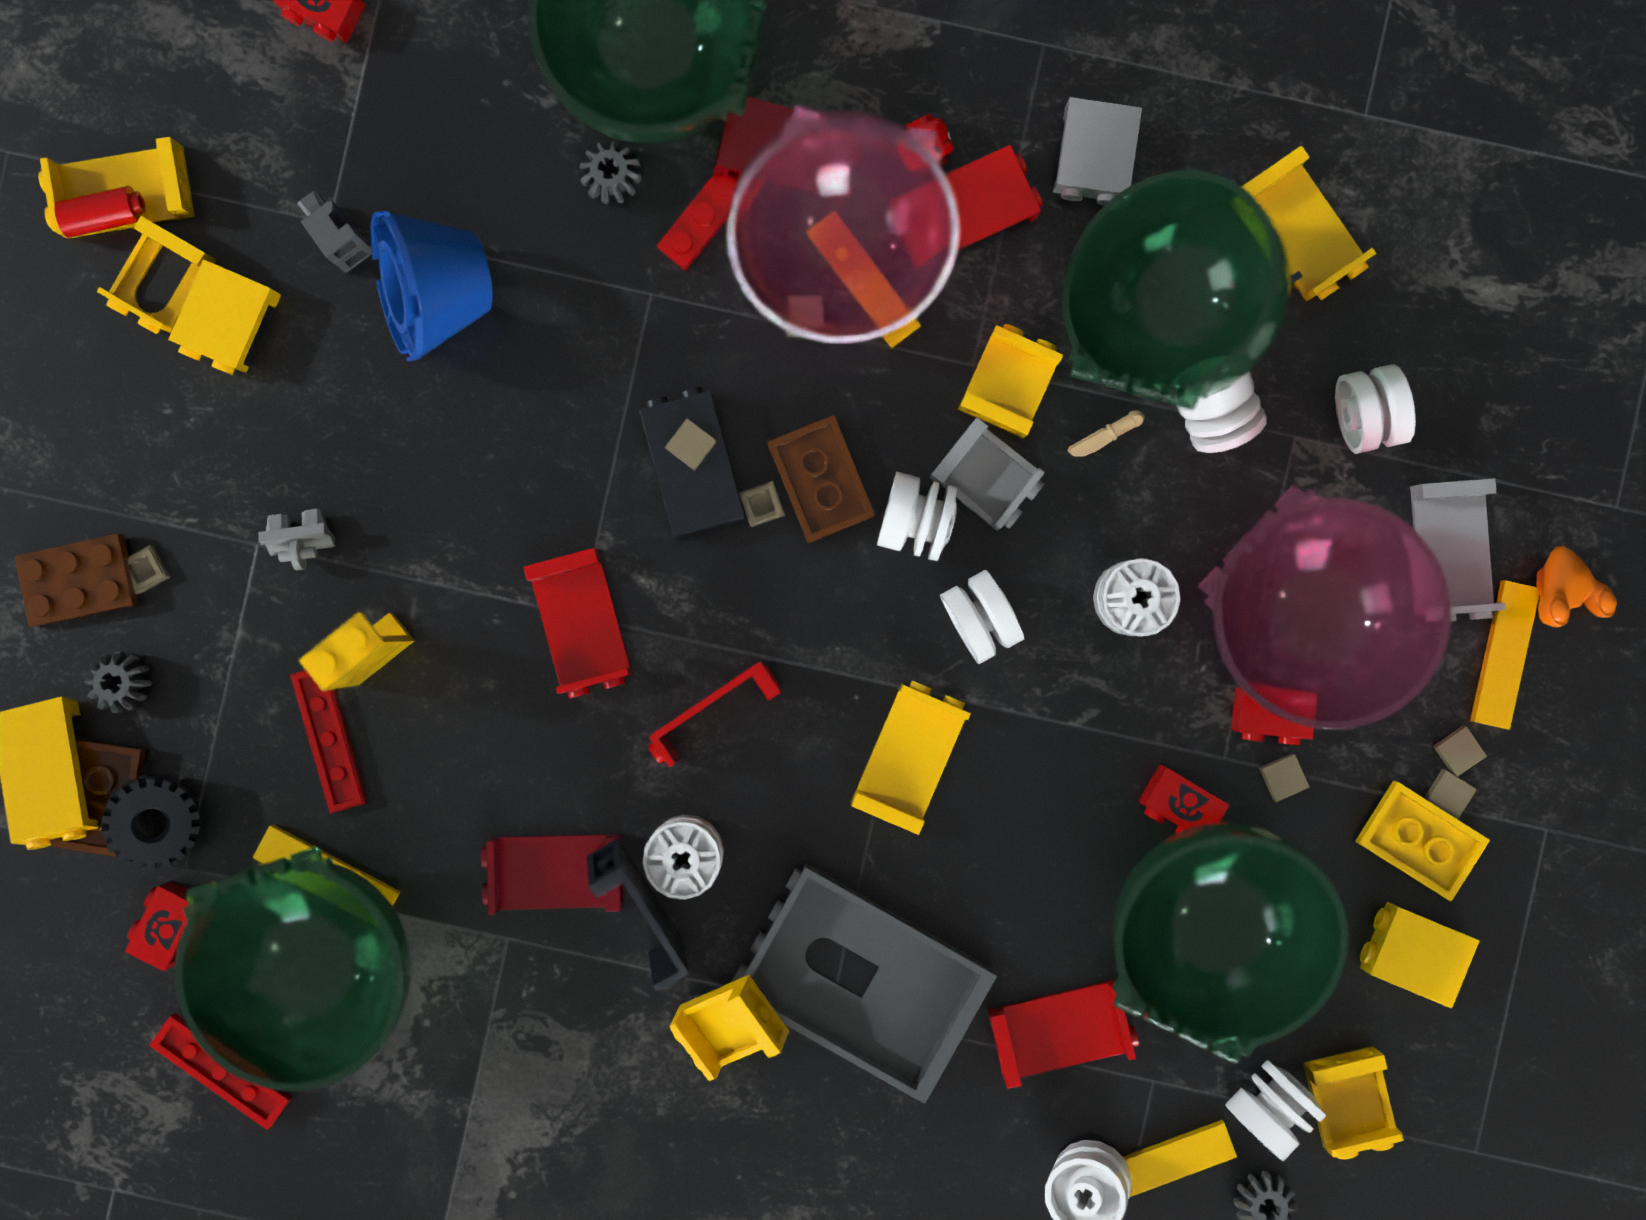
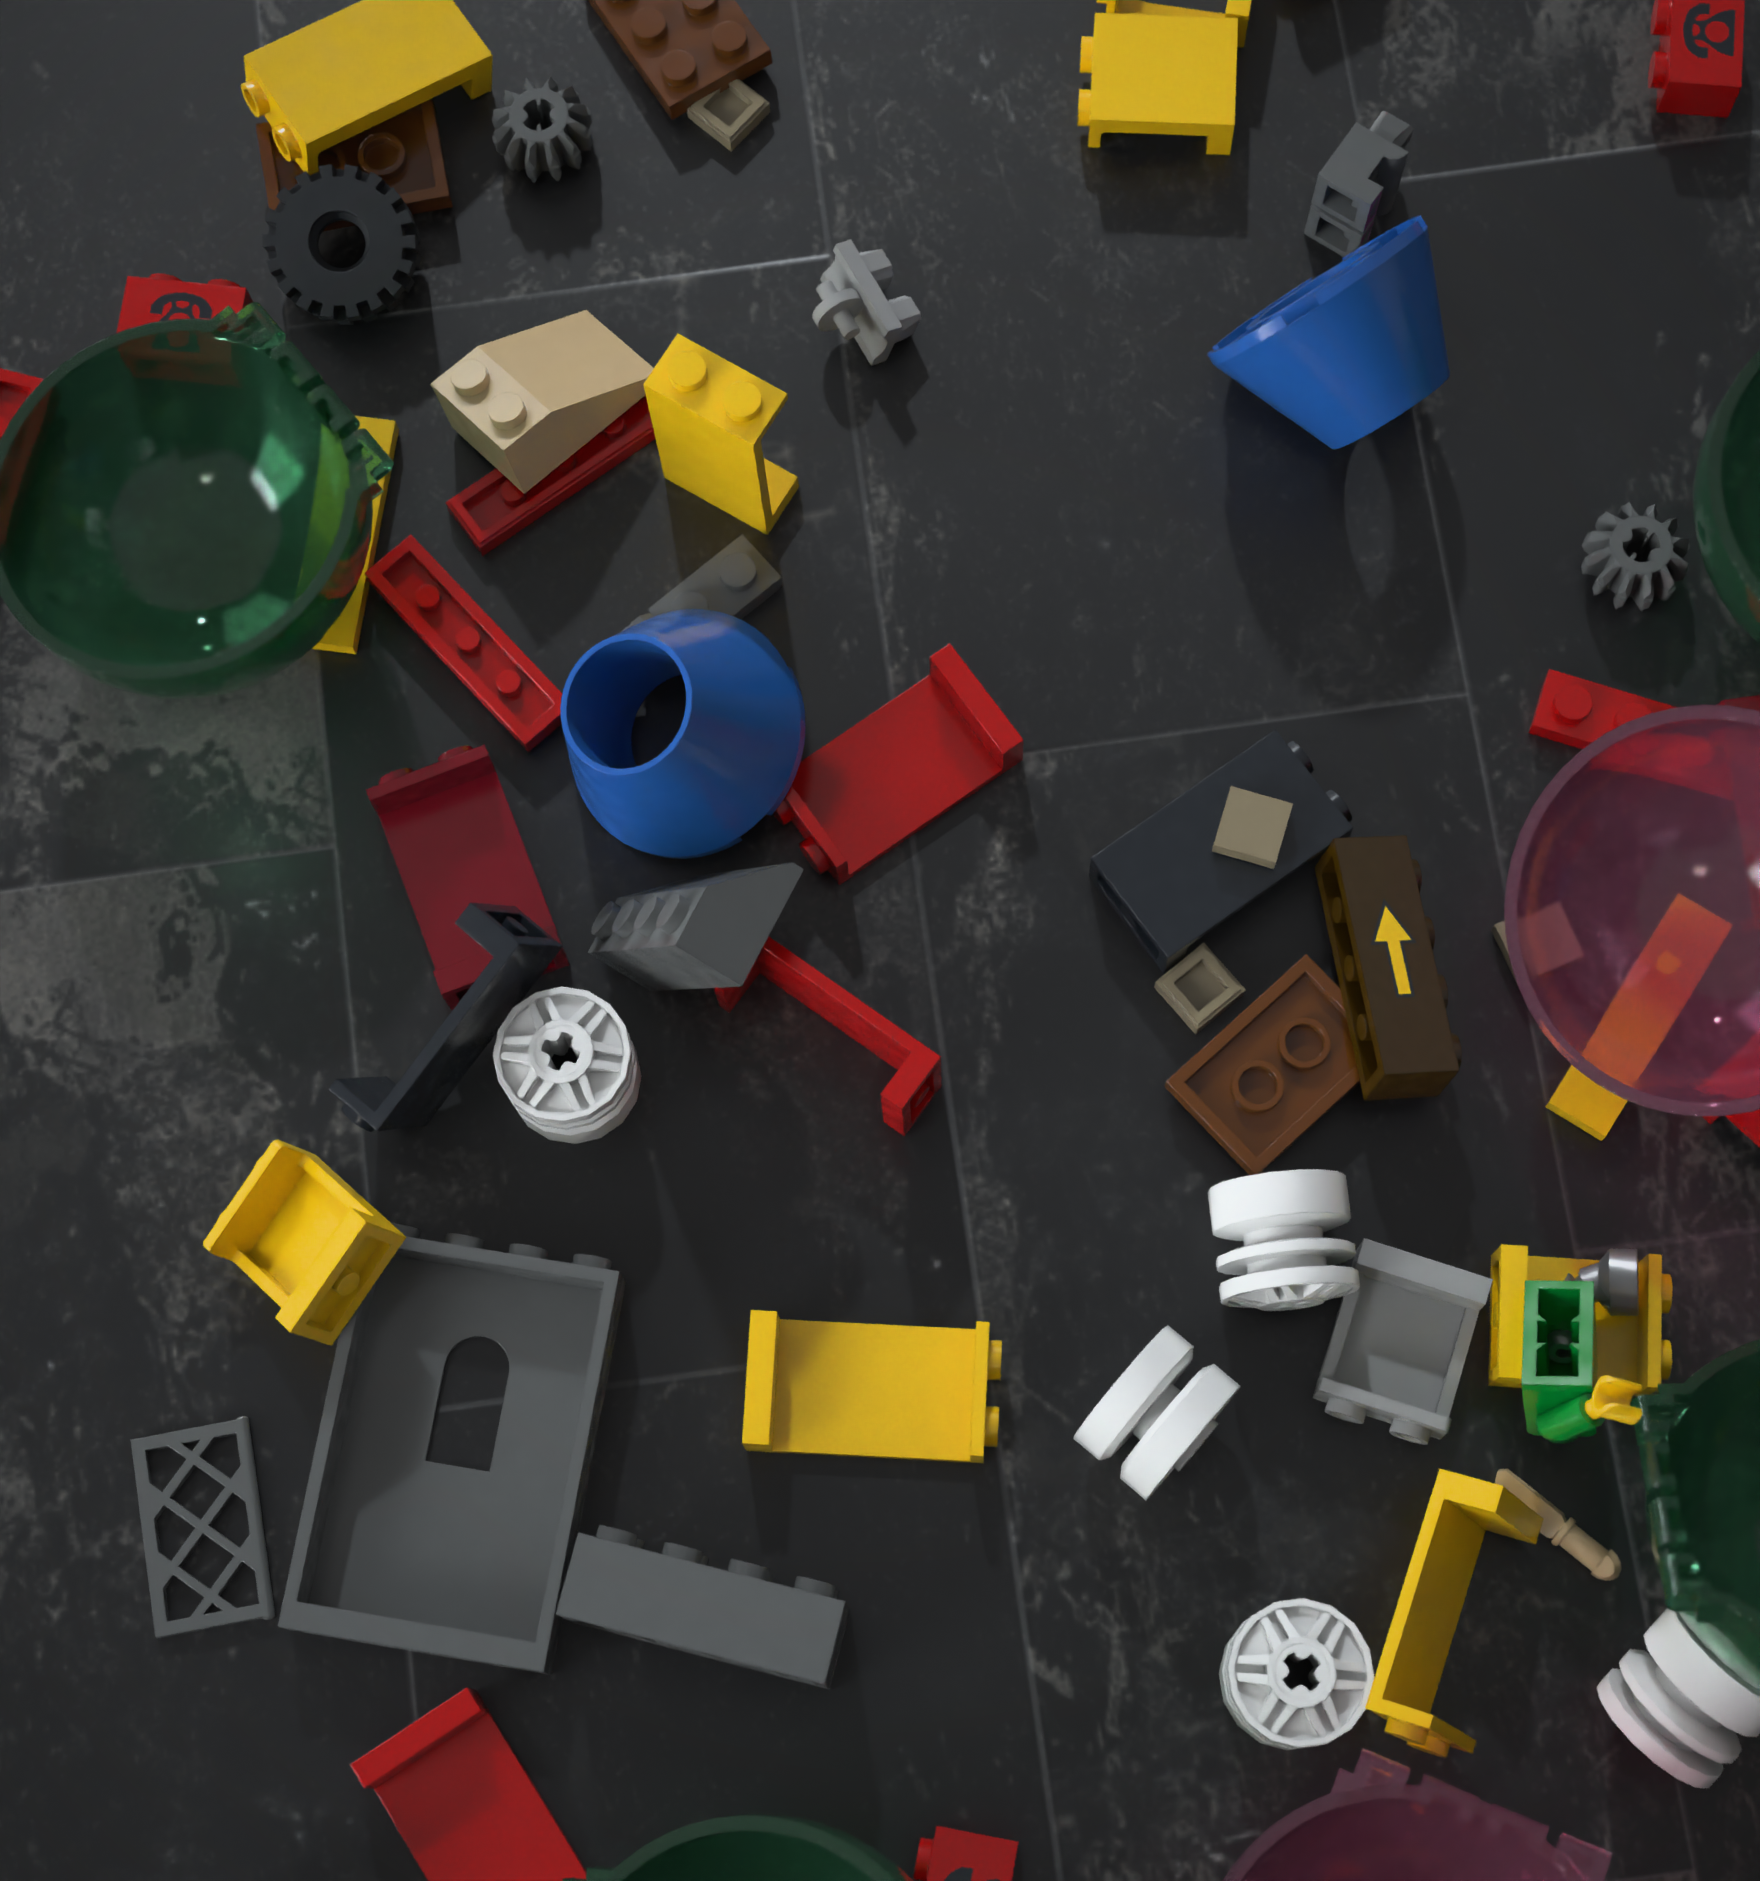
camera: 70 degrees right, 15 degrees down
(285, 736) = (541, 394): none -> tan slope
(419, 828) = (468, 642): none -> red plate
(445, 692) = (728, 583): none -> dark grey hinge
(529, 700) = (730, 754): none -> blue cone
(637, 763) = (694, 929): none -> dark grey slope
(791, 403) = (1387, 968): none -> dark brown brick
(867, 1151) = (153, 1503): none -> dark grey window
(996, 883) = (704, 1609): none -> dark grey brick
(1028, 397) = (1561, 1350): none -> green torso
(1130, 517) = (1432, 1603): none -> yellow panel

